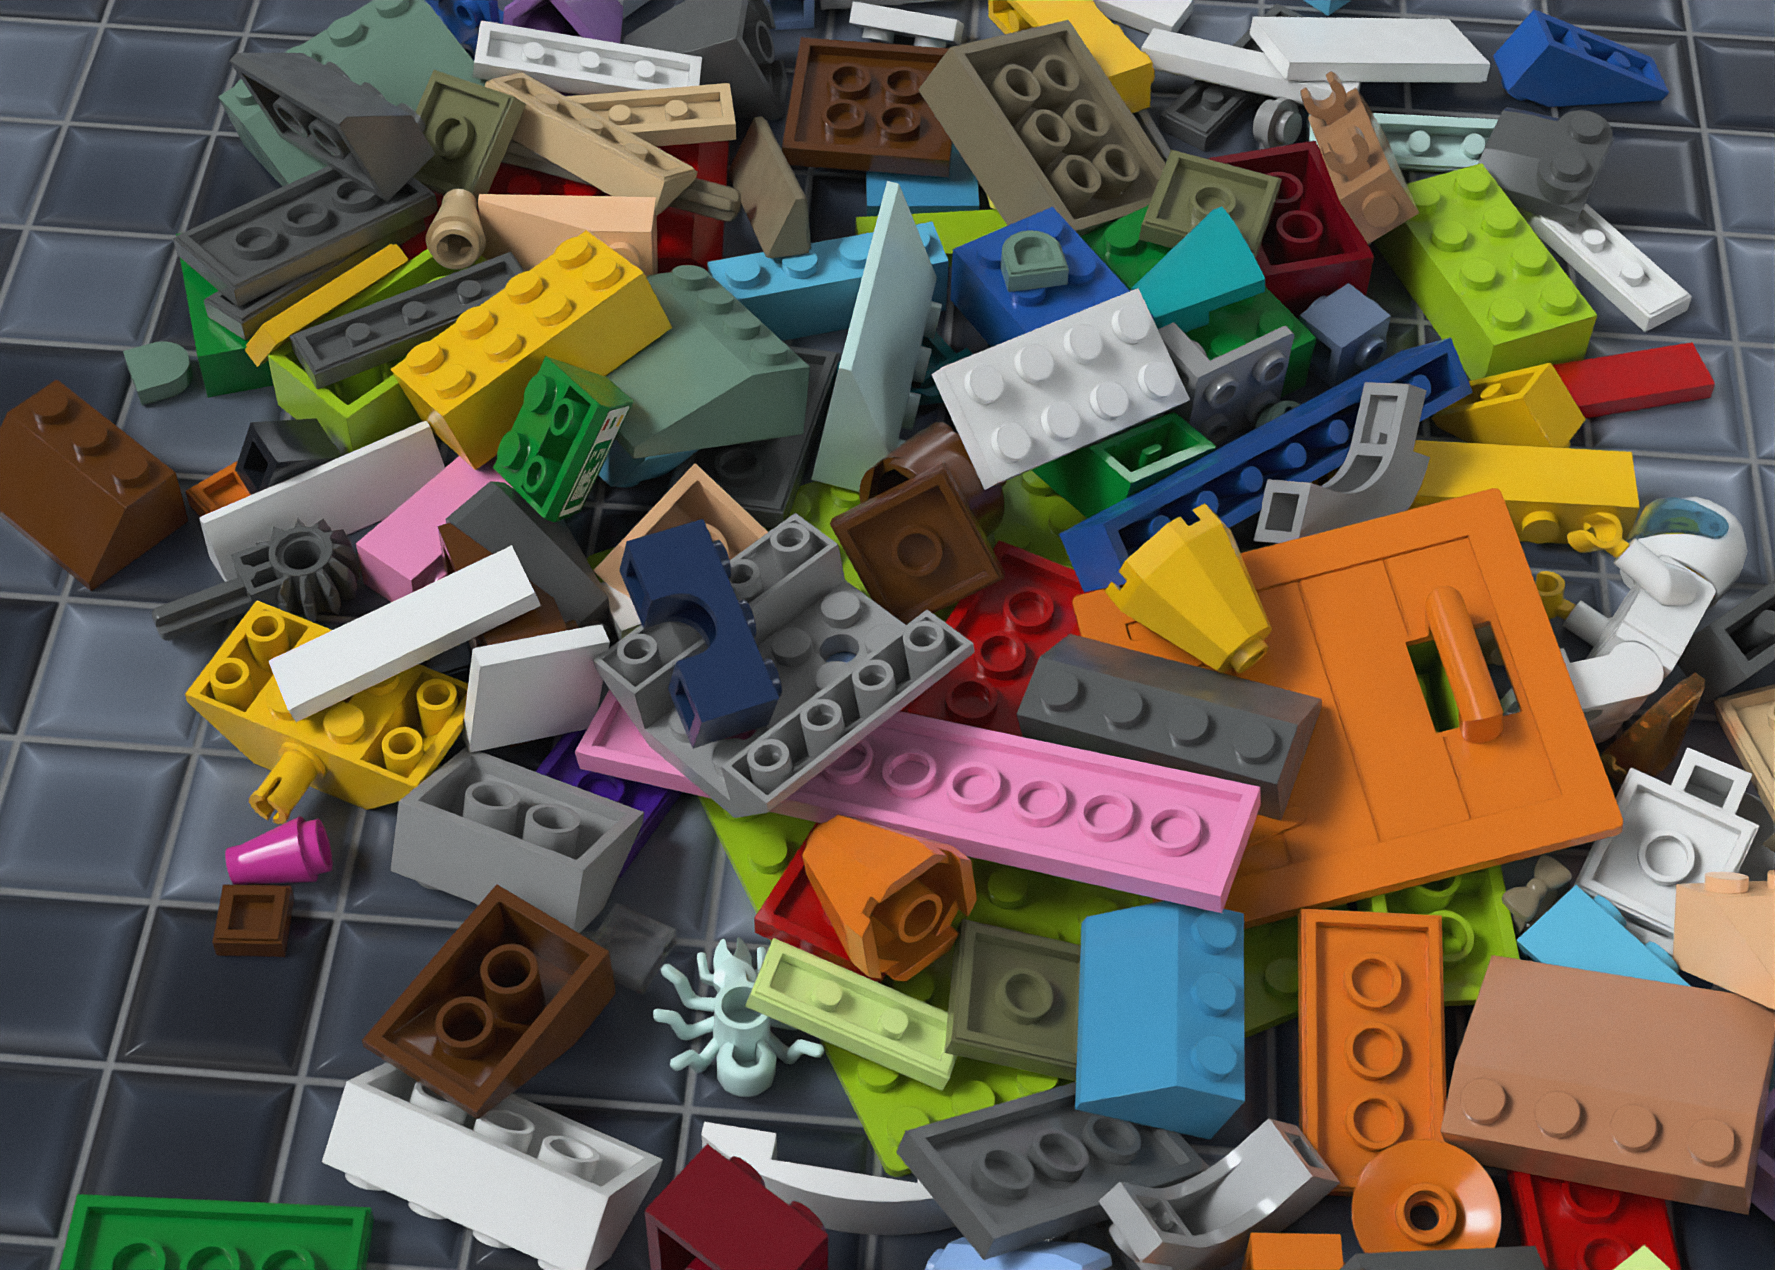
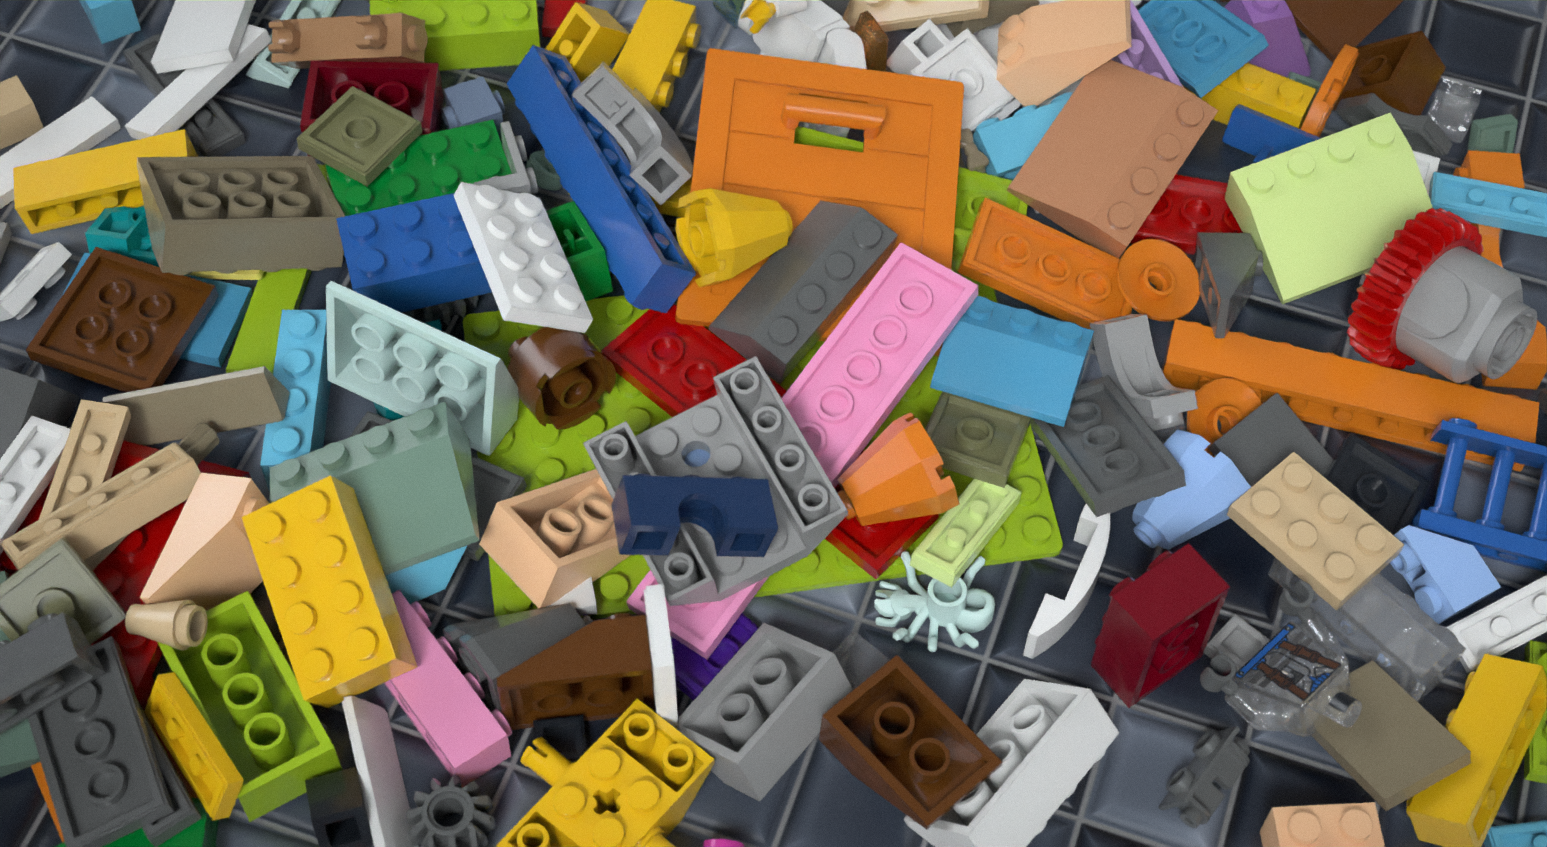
camera: 75 degrees left, 5 degrees up
(397, 323) = (251, 678): dark grey tile -> none
(403, 633) = (597, 728): white tile -> none
(561, 437) = (450, 579): green slope -> none
(918, 546) = (612, 386): reddish brown tile -> none
(1033, 261) = (400, 239): sand green tile -> none
(1201, 274) = (430, 151): teal slope -> none
(1277, 123) = (253, 87): light grey plate -> none

